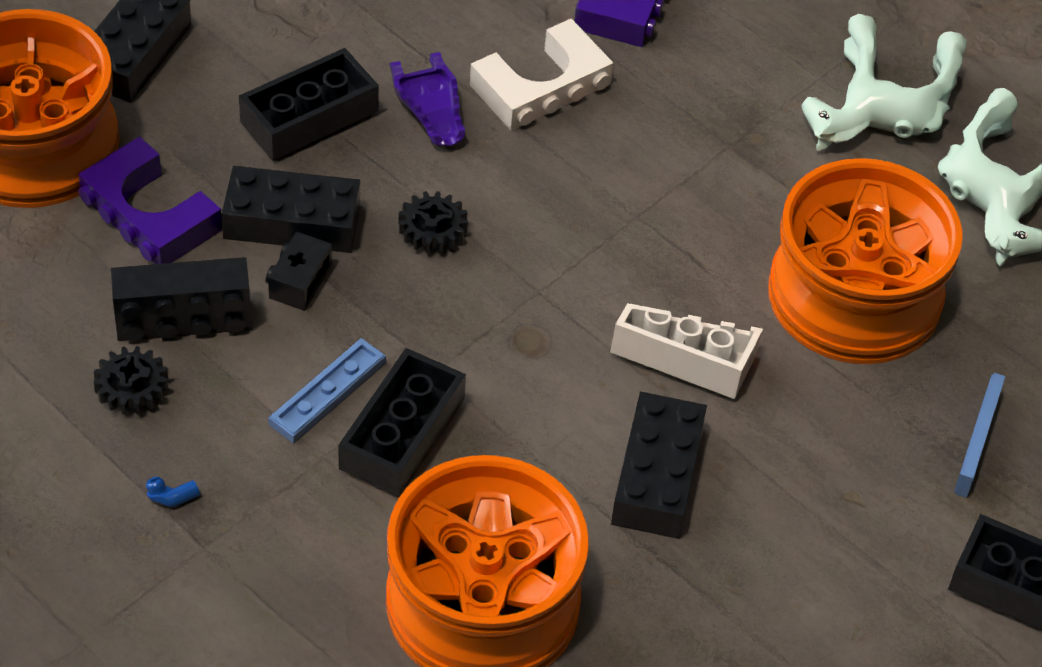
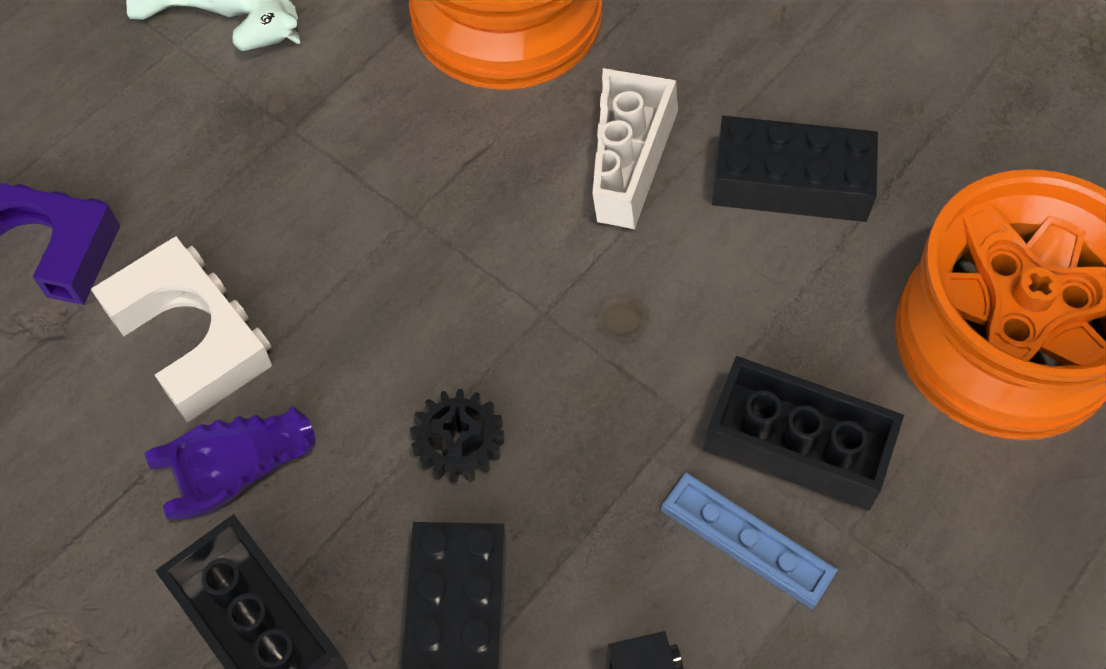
camera: 90 degrees left, 10 degrees up
(299, 270) = (545, 580): black brick -> none

